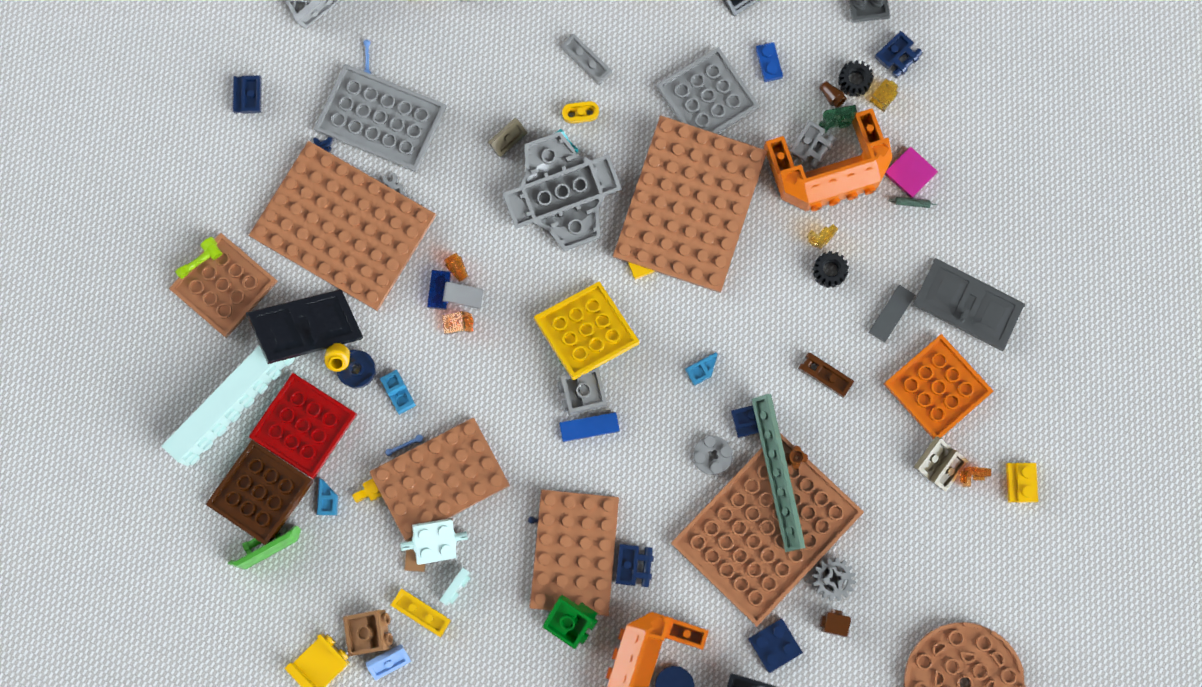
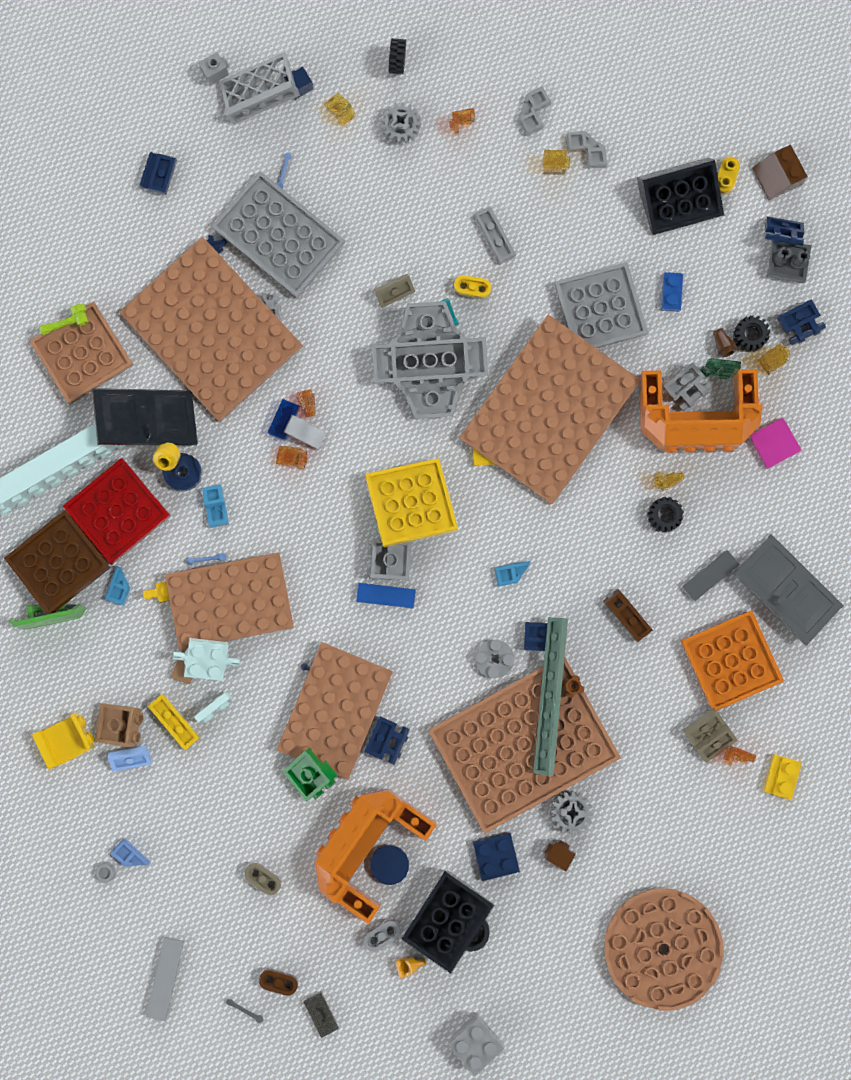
camera: 20 degrees right, 5 degrees up
(912, 202) = (767, 473): sand green piece -> none

